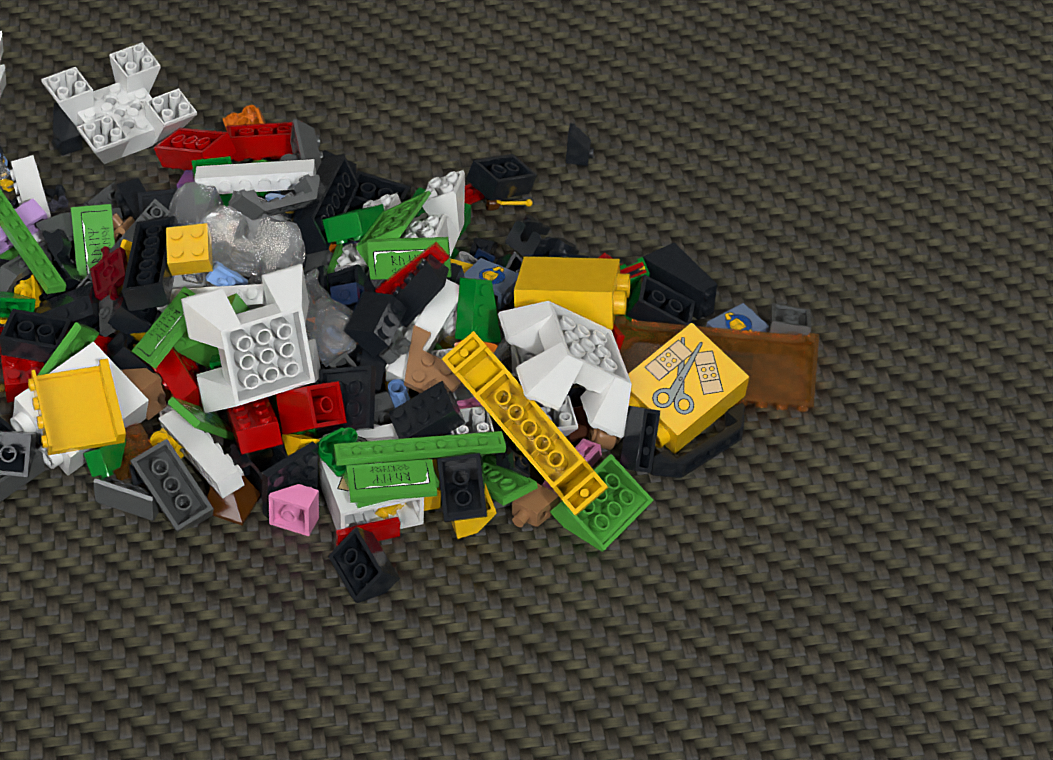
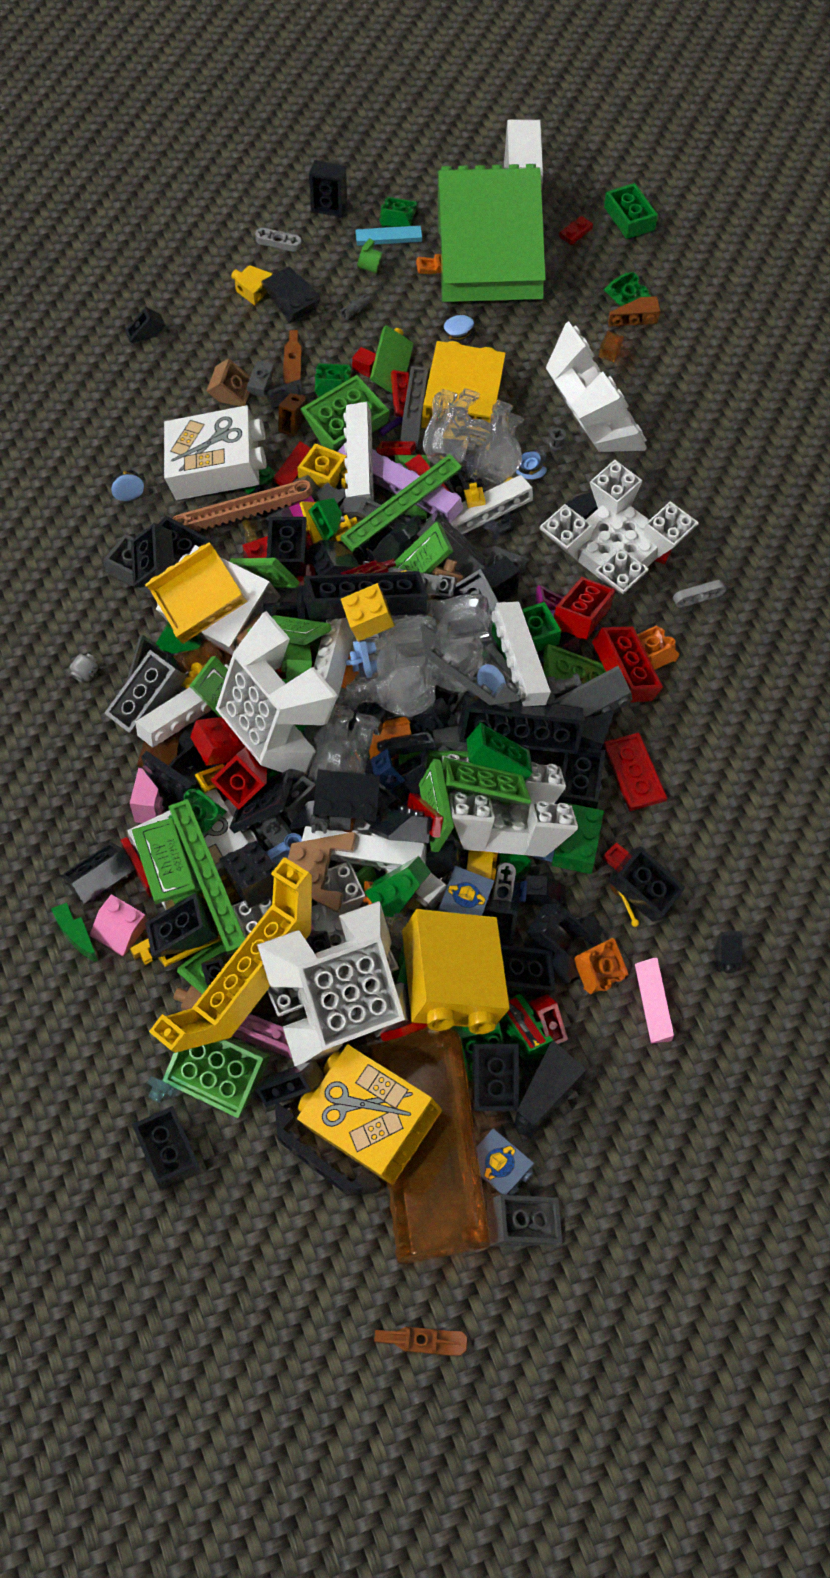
camera: 80 degrees right, 15 degrees up
(24, 195) = (474, 496): none -> yellow tile
(105, 546) = (83, 667): none -> light grey head
(166, 181) = (547, 596): none -> magenta slope
(199, 82) = (699, 593): none -> light grey beam
(387, 166) = (634, 771): none -> red tile
(428, 592) = (74, 931): none -> green slope
(430, 556) = (118, 925): none -> bright pink slope
(465, 541) = (142, 950): none -> yellow tile
(571, 228) = (601, 966): none -> orange slope
(607, 205) = (654, 1001): none -> bright pink slope
(614, 548) = (159, 1088): none -> clear light blue tile
(677, 546) = (166, 1148): none -> black brick
(880, 401) = (437, 1341): none -> dark orange piece

